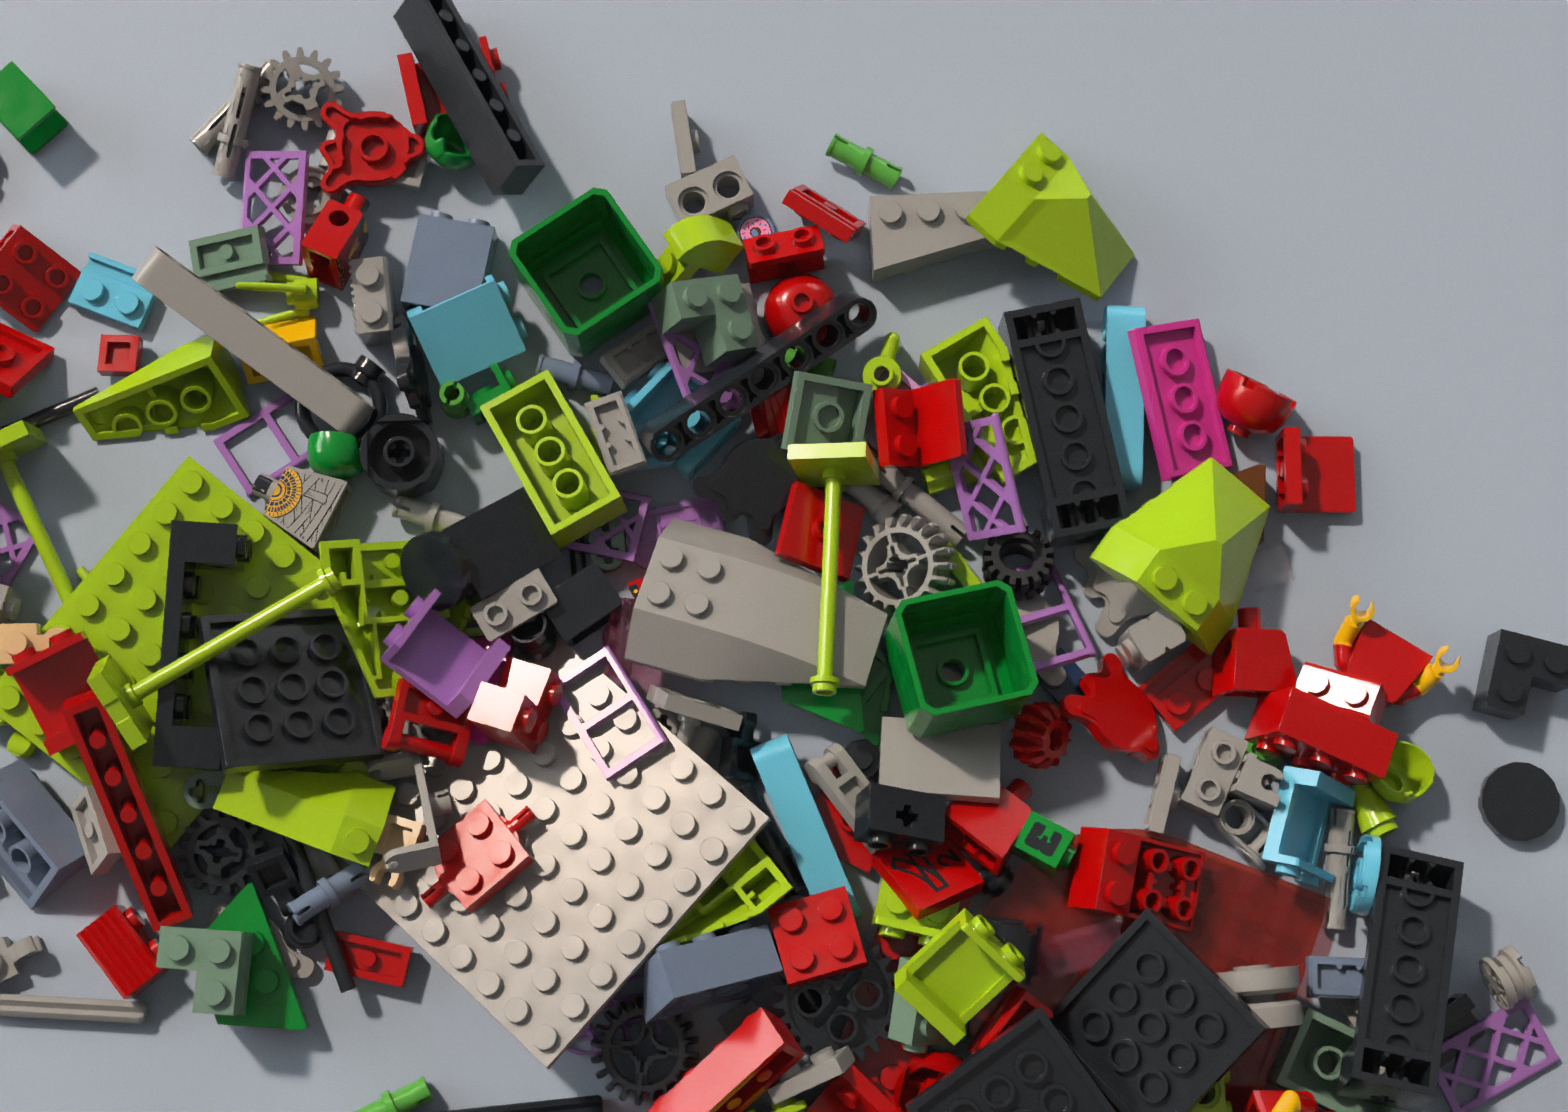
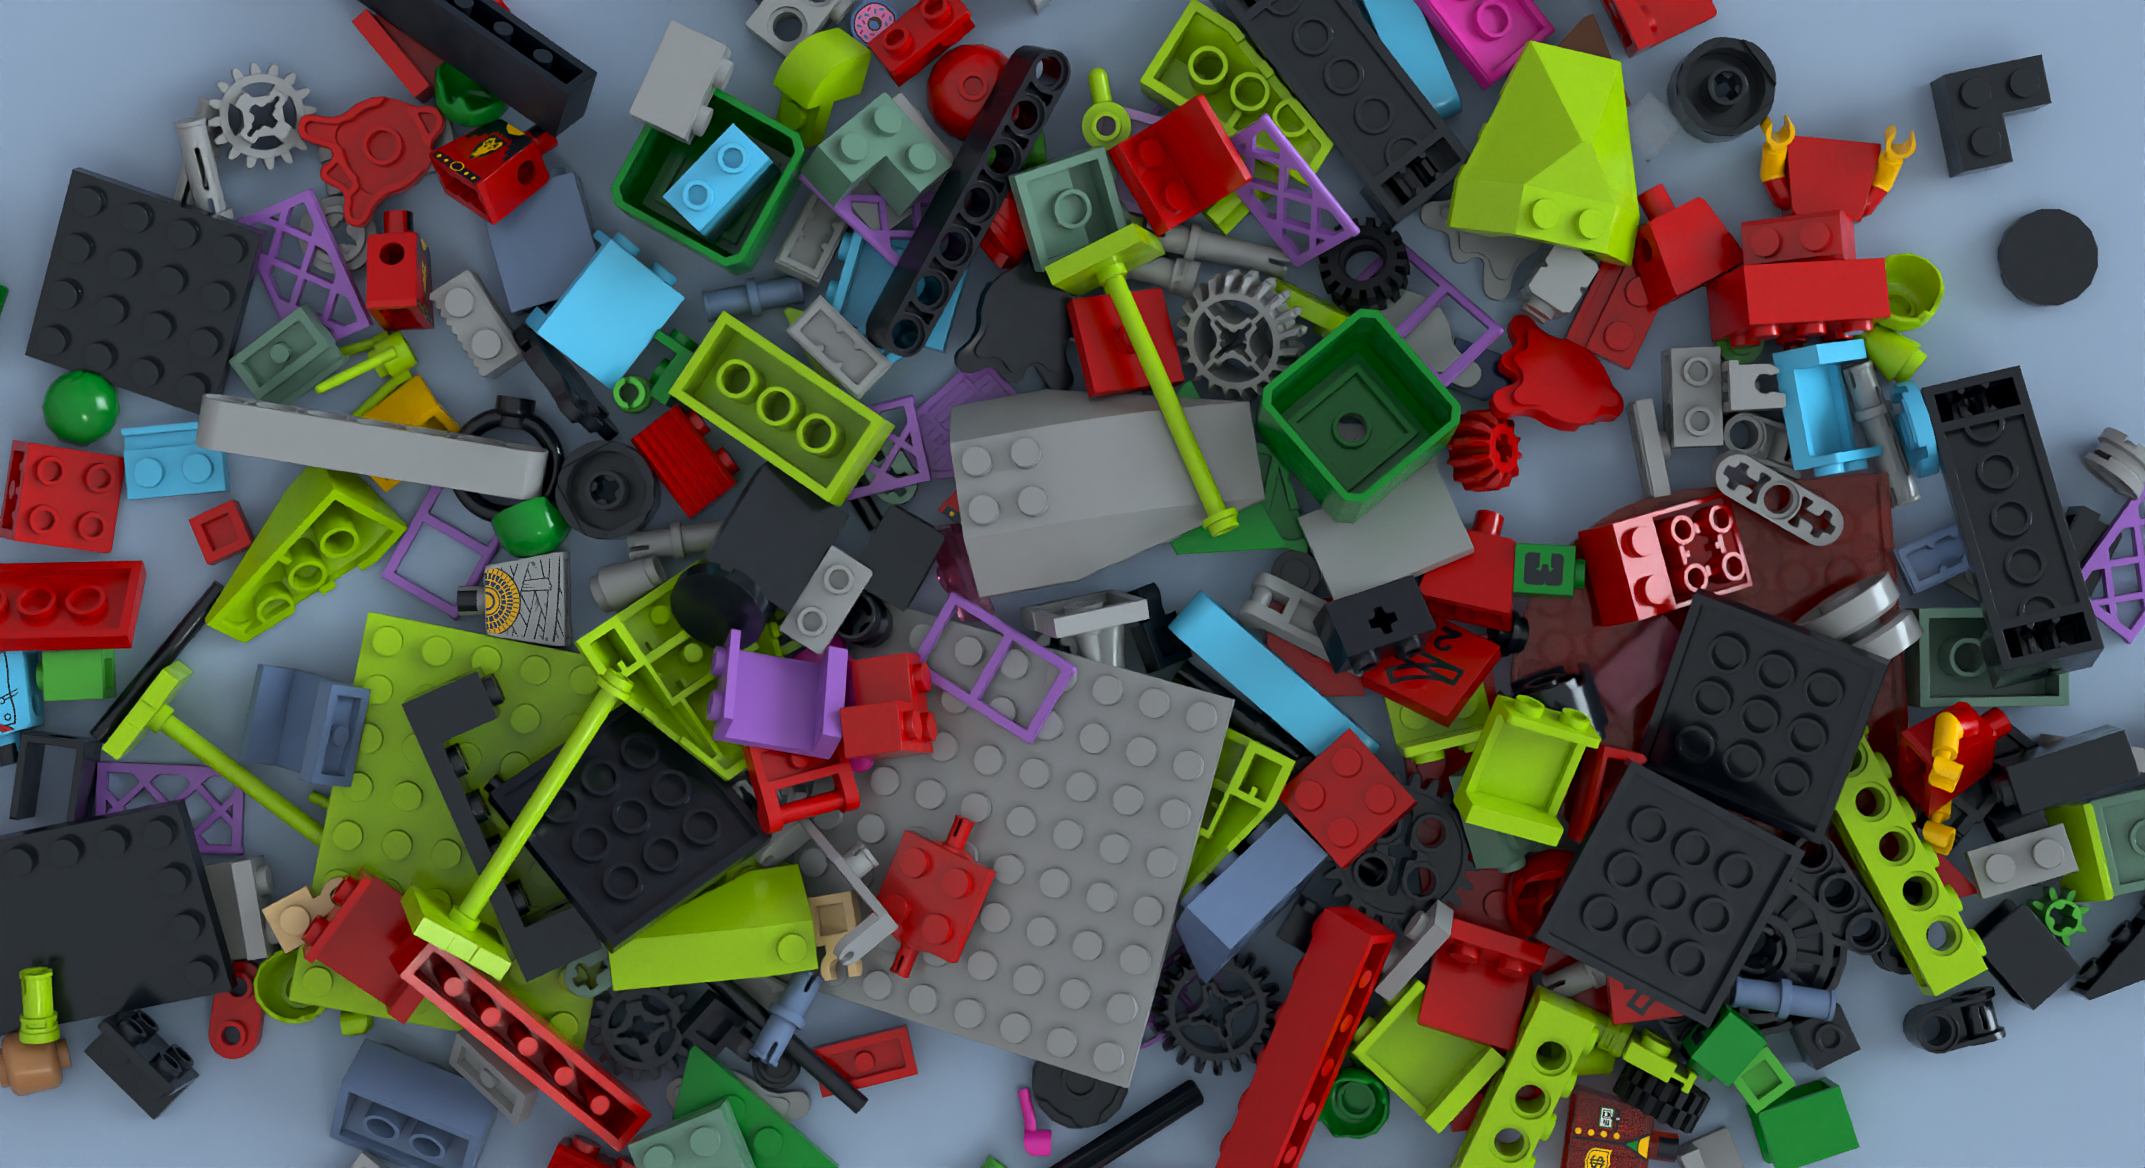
camera: 25 degrees left, 10 degrees up
(71, 224) = (80, 407): none -> green hair
(100, 512) = (304, 724): none -> sand blue panel
(157, 165) = (144, 291): none -> black plate
(381, 527) = (626, 582): none -> light grey cone
(441, 197) = (494, 167): none -> red torso
(462, 1083) = (1036, 1141): none -> dark pink hand
(468, 464) = (686, 460): none -> red brick
(510, 1064) = (1073, 1097): none -> black tile
(591, 278) = (722, 183): none -> medium azure panel
(598, 191) = (682, 83): none -> light grey brick
(1265, 893) = (1800, 526): none -> light grey beam
(1343, 544) = (1743, 107): none -> black brick

